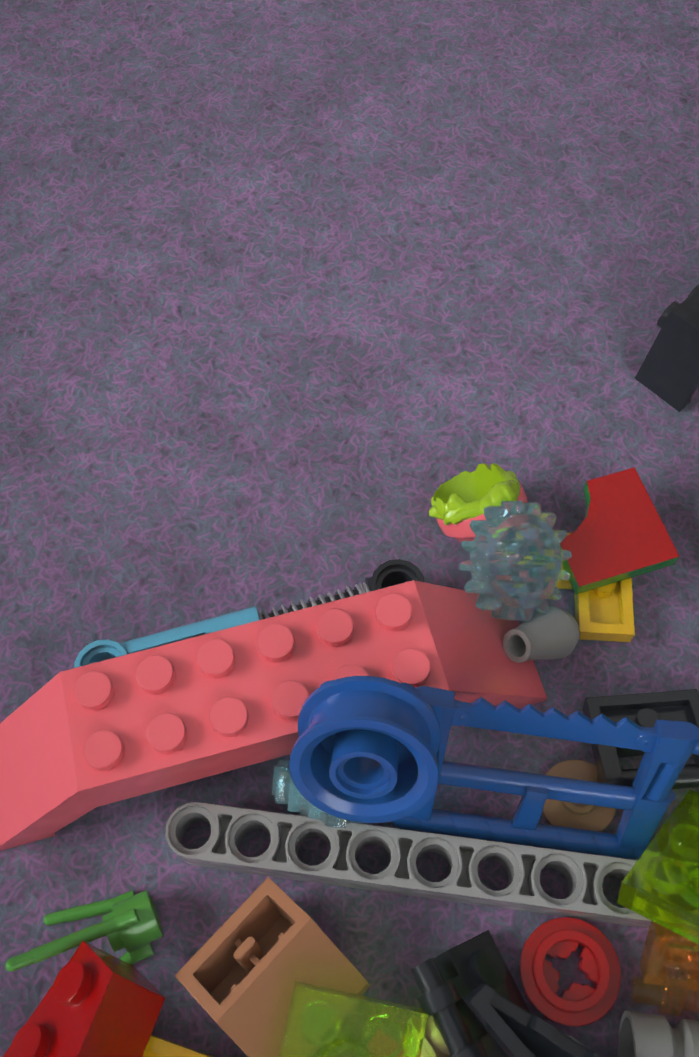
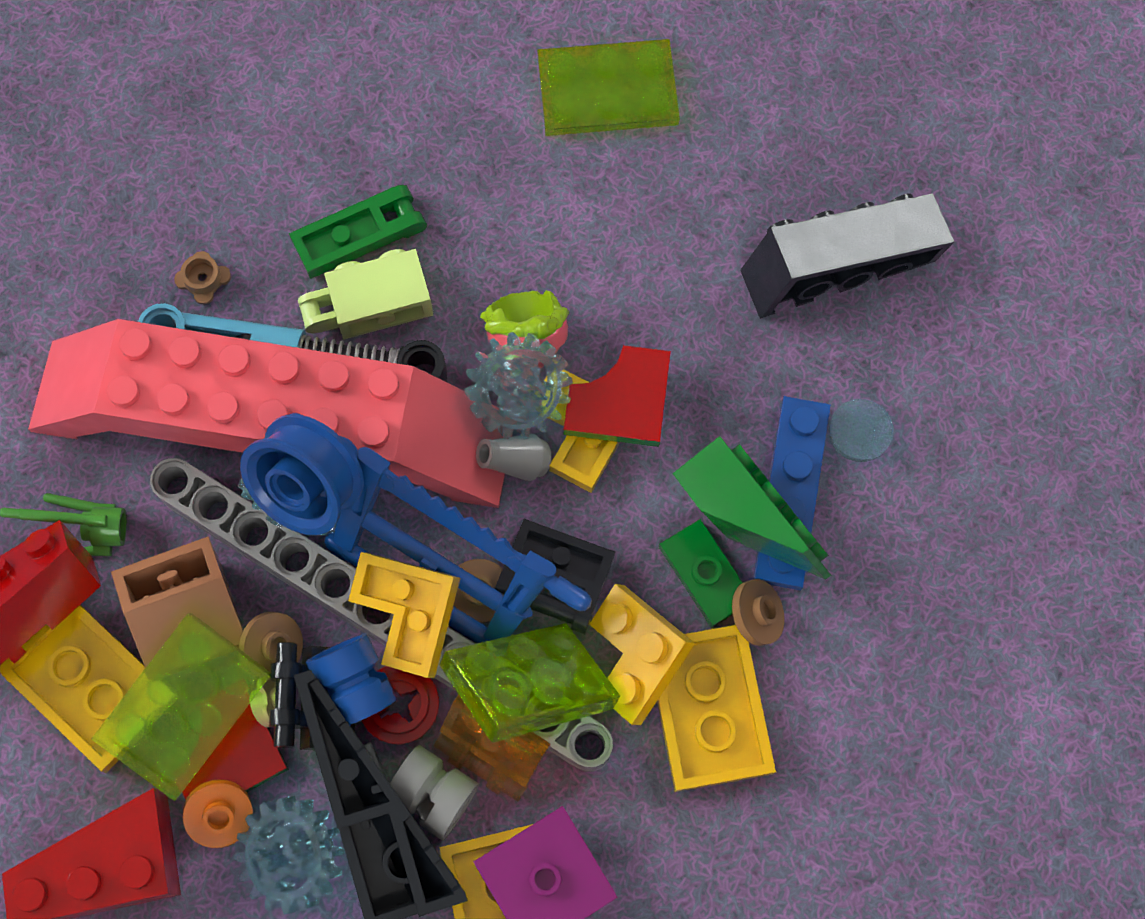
camera: 20 degrees right, 10 degrees up
(108, 591) = (197, 265): none -> medium nougat plate
(256, 491) = (357, 230): none -> green plate
(304, 544) = (369, 295): none -> yellowish green brick
(387, 966) = (264, 632): none -> medium nougat piece
(422, 274) = (607, 87): none -> clear neon green plate
(517, 964) = (351, 678): none -> blue wheel
(553, 839) = (420, 606): none -> yellow plate

